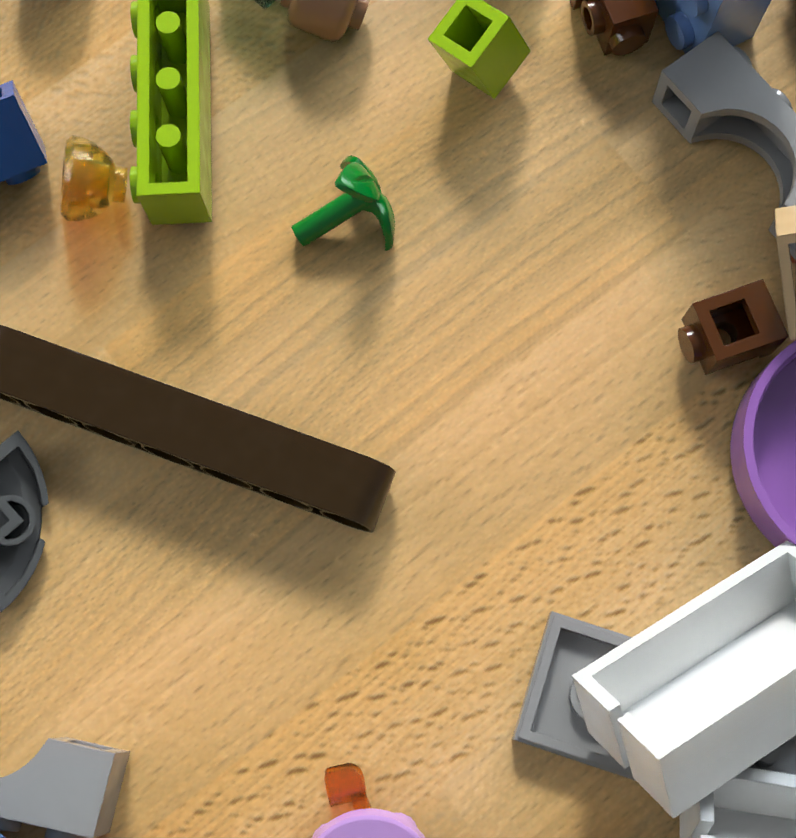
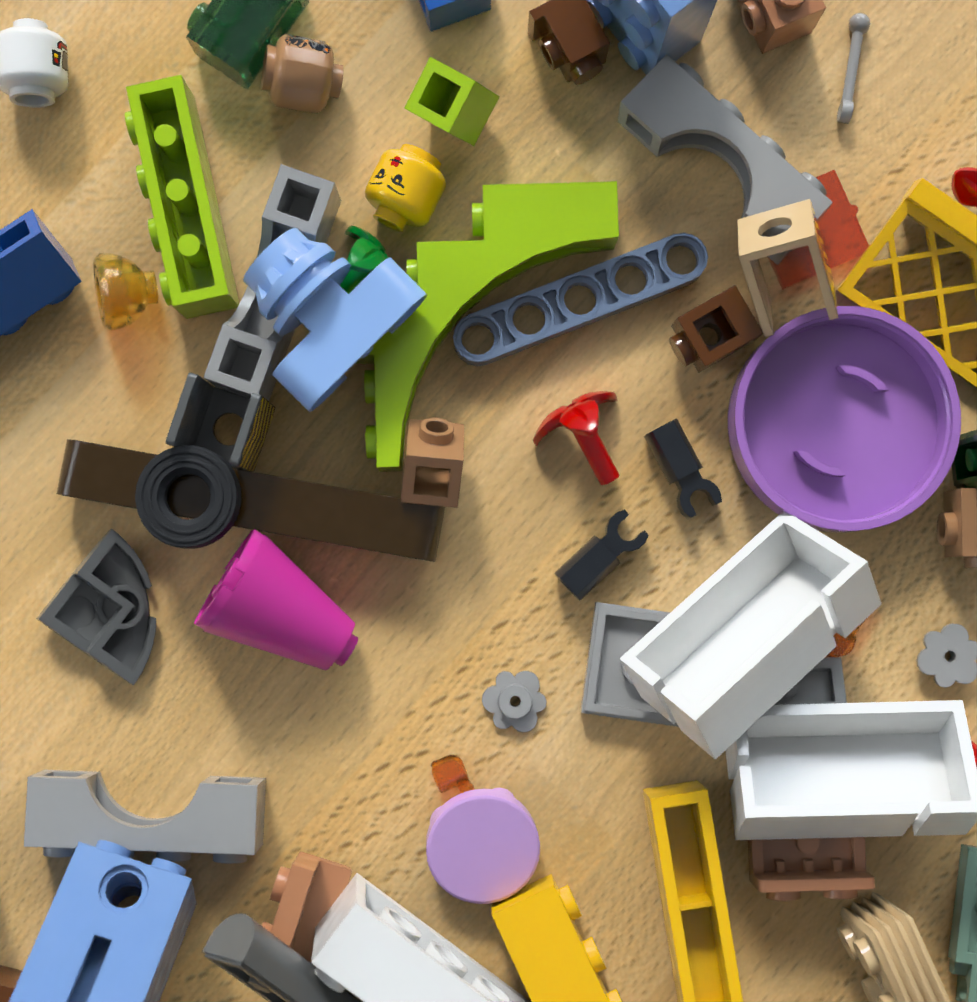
camera: 15 degrees left, 10 degrees up
(80, 376) = (154, 487): none -> black tyre
(144, 317) = (202, 407): none -> dark grey piece
(182, 550) = (276, 608): none -> dark pink cone
(223, 251) = (247, 344): none -> light grey arch
(284, 198) = (302, 287): none -> light blue beam
(391, 416) = (433, 462): none -> medium nougat brick
(413, 124) = (405, 187): none -> yellow head
(444, 732) = (497, 700): none -> light grey plant
(521, 192) = (520, 231): none -> lime arch
(560, 561) = (597, 558): none -> black bar
(567, 400) = (583, 420): none -> red plant
(606, 254) = (602, 283): none -> sand blue beam
(672, 473) = (680, 465): none -> black bar

